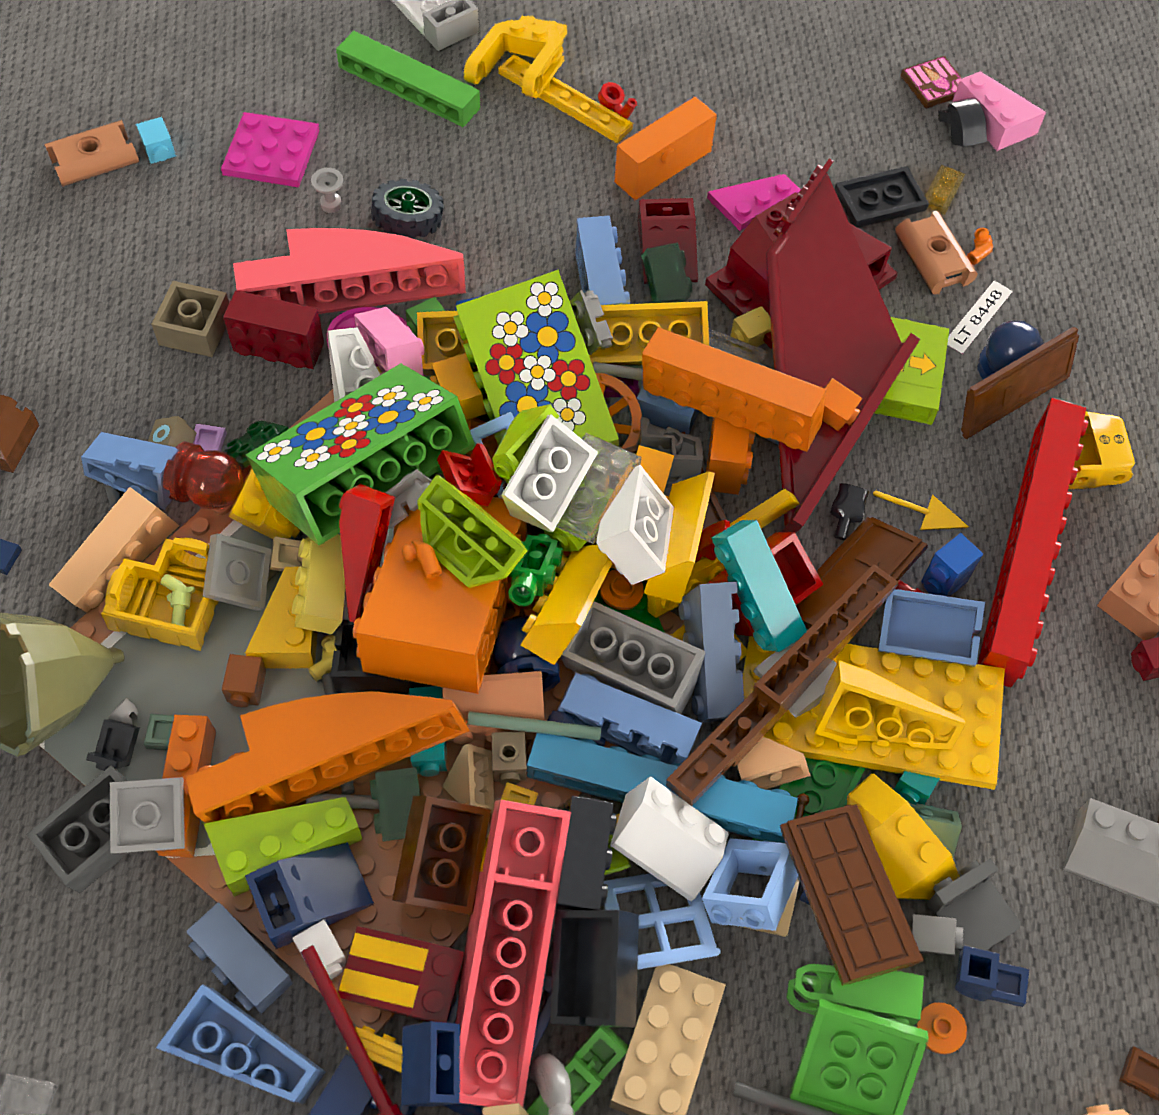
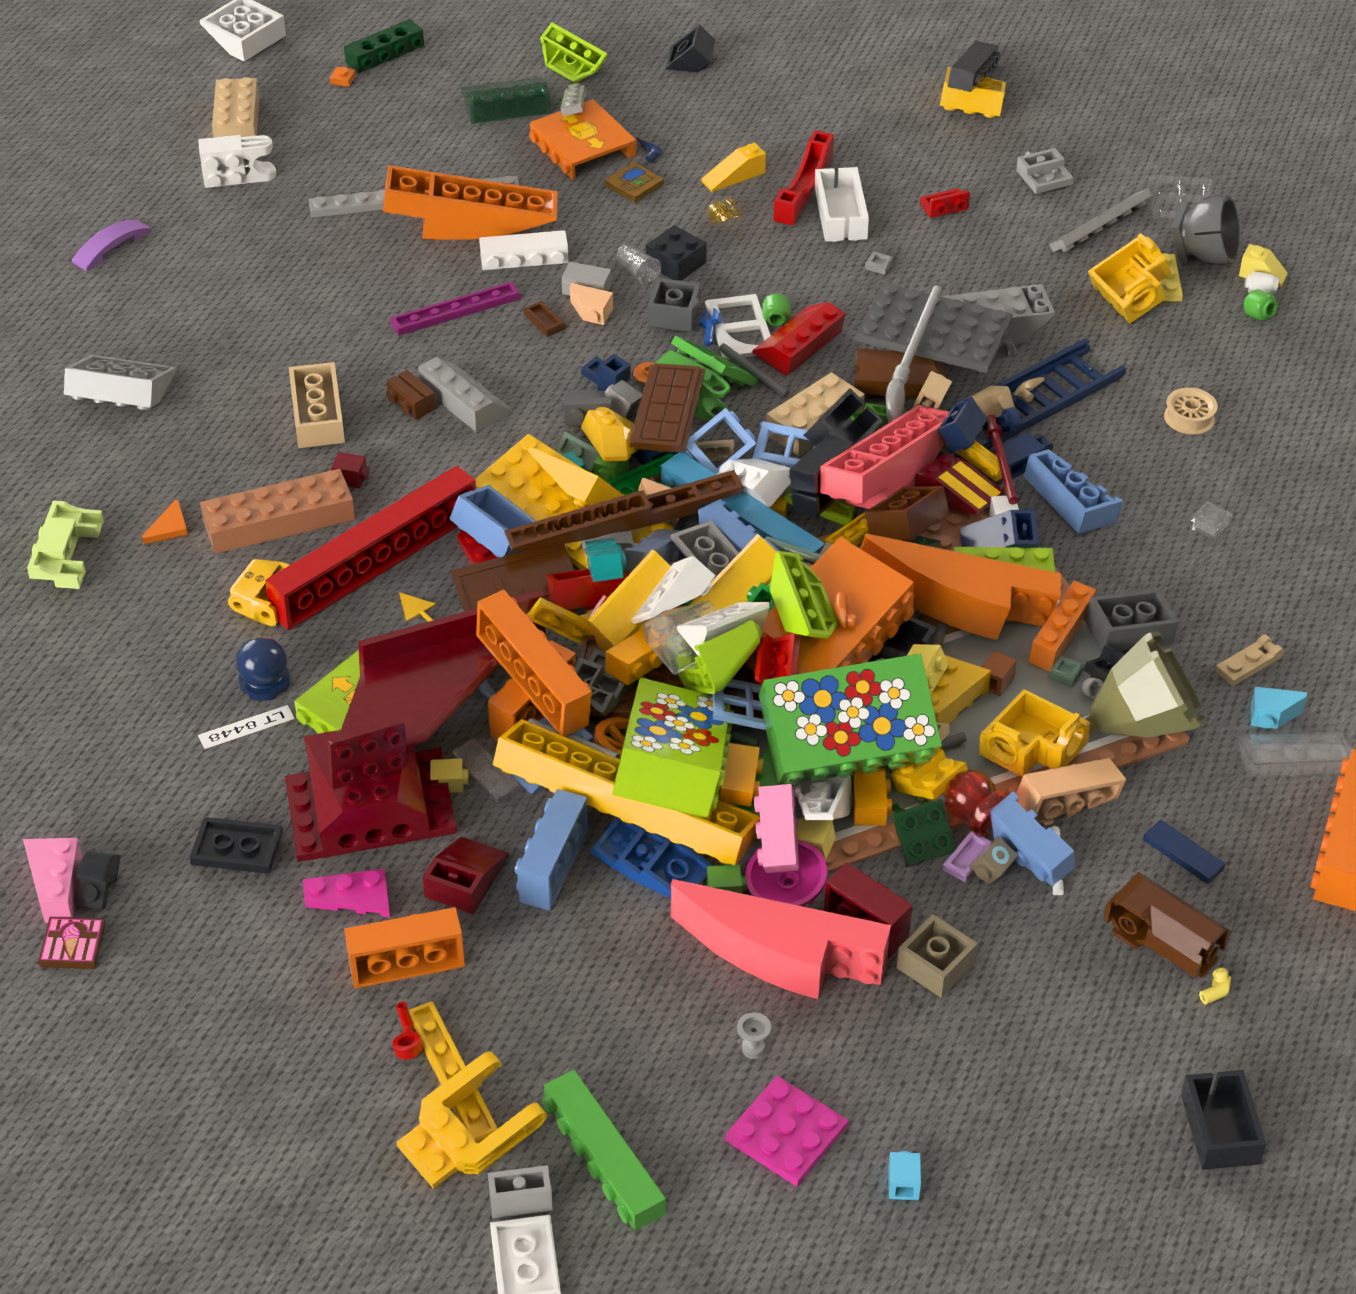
camera: 150 degrees left, 15 degrees down
(91, 153) = (977, 1188): nougat piece -> none
(147, 815) = (1092, 589): light grey plate -> none
(179, 598) = (1028, 726): yellowish green piece -> none
(237, 572) = (976, 722): light grey plate -> none
(238, 959) = (1057, 533): sand blue brick -> none
(363, 536) = (872, 647): red slope -> none
(407, 492) = (827, 658): light grey hinge -> none
(414, 210) = (701, 1011): black wheel -> none
(586, 309) = (604, 762): light grey hinge -> none
(666, 274) = (492, 833): clear green brick -> none
(840, 405) = (456, 639): orange brick -> none
(935, 252) = (237, 777): nougat piece -> none
(944, 189) = (170, 836): clear yellow plate -> none
(951, 567) = (447, 550): blue brick -> none
(983, 246) = (188, 772): orange arm -> none
(1019, 382) = (294, 635): reddish brown piece -> none

